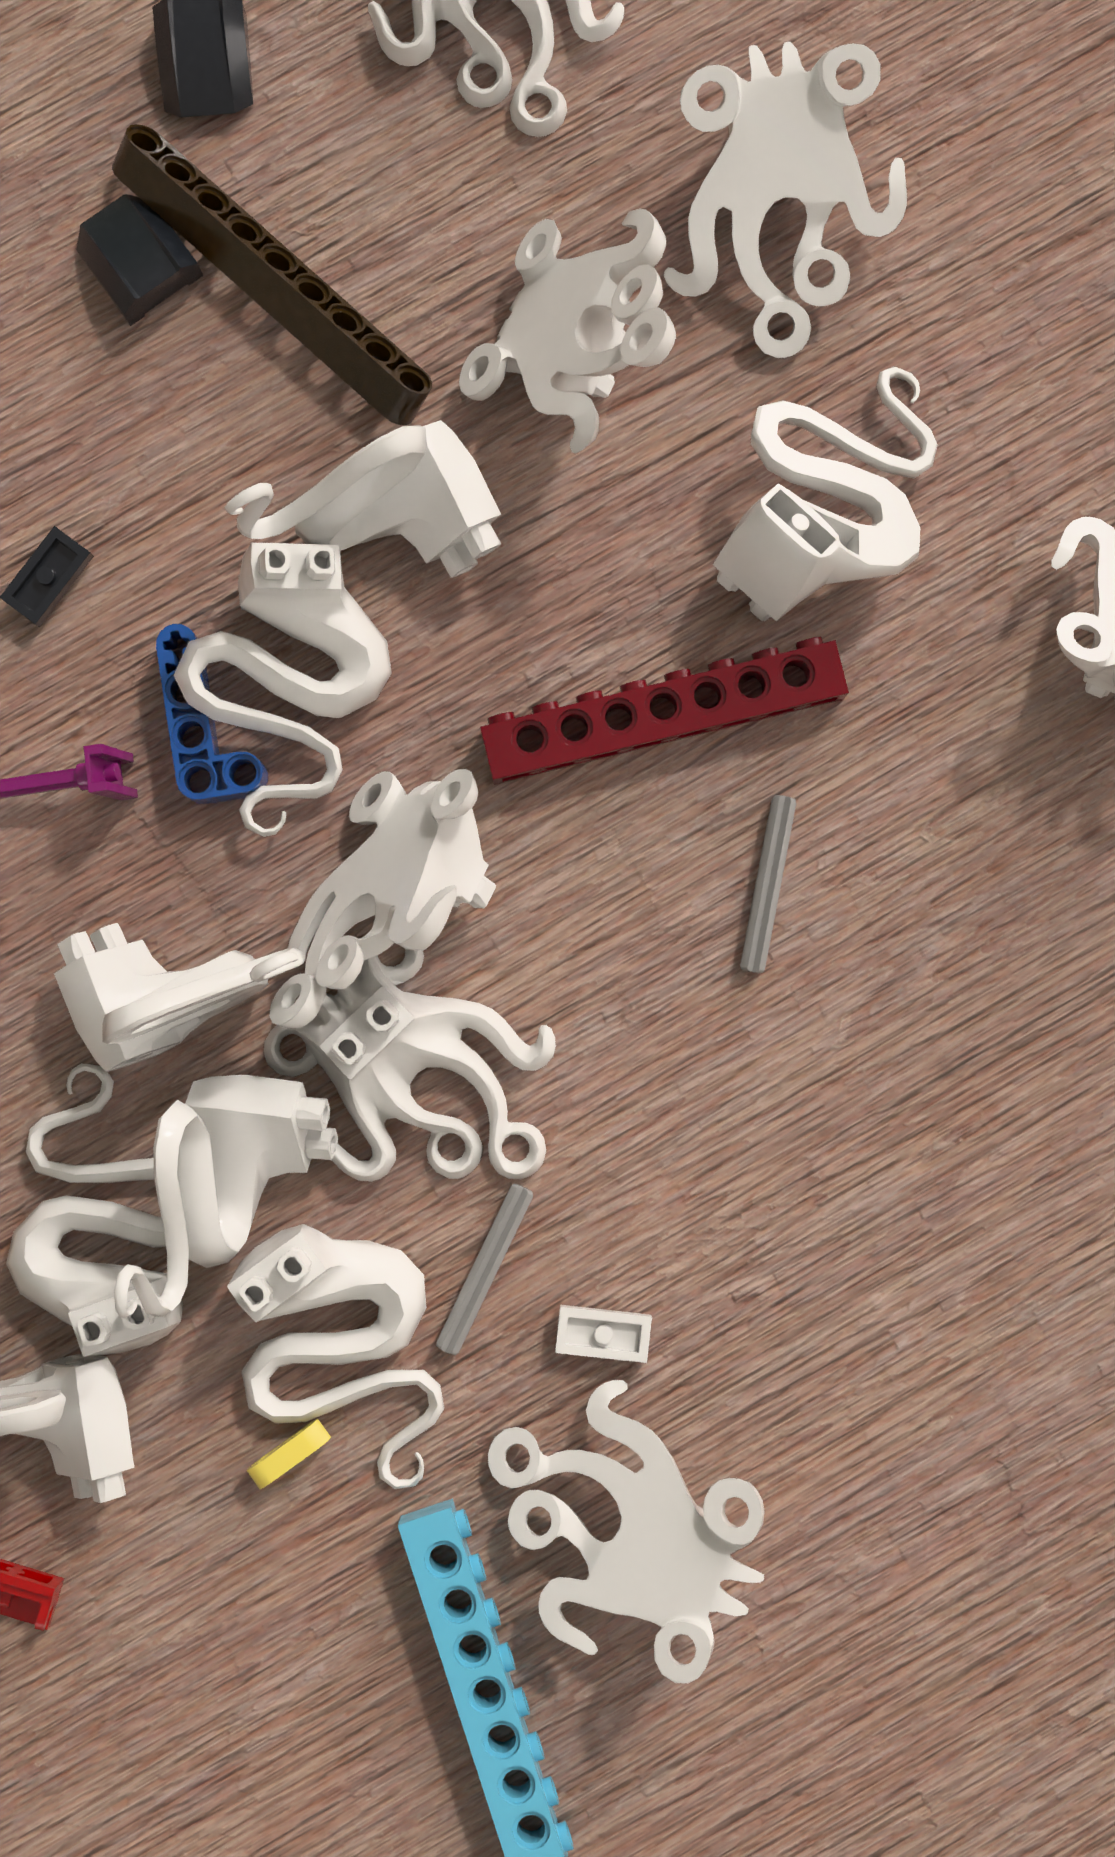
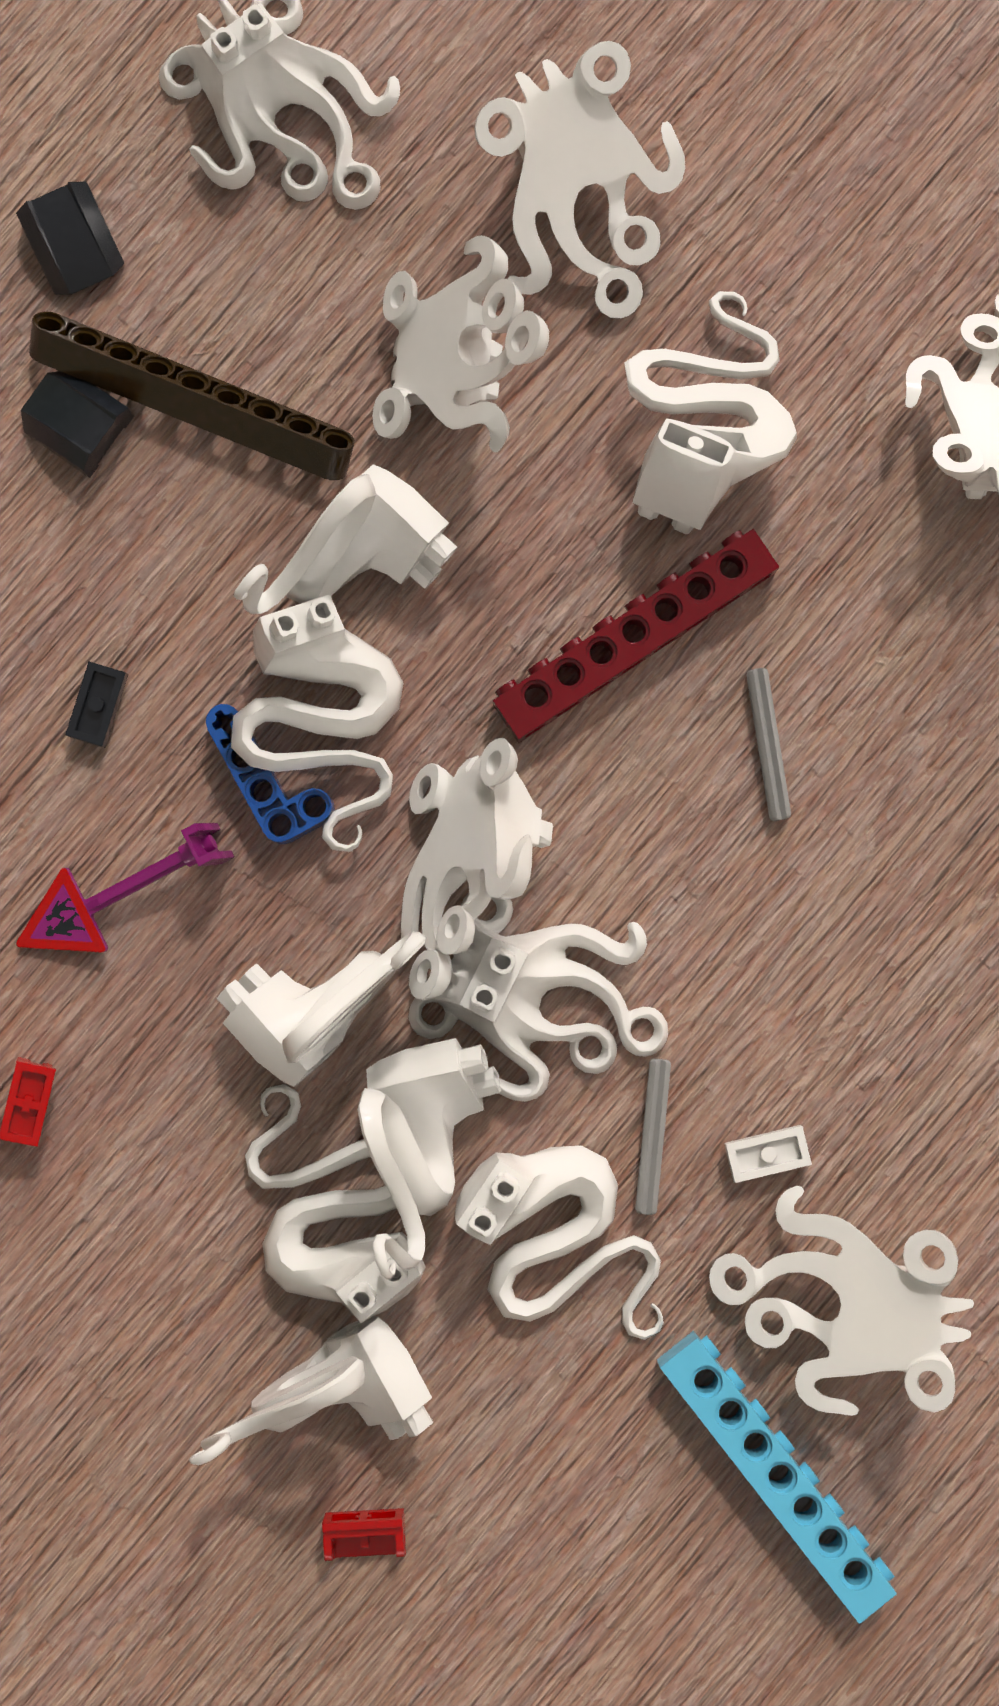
camera: 15 degrees left, 0 degrees up
(288, 1453) = (549, 1342): light yellow beam -> none

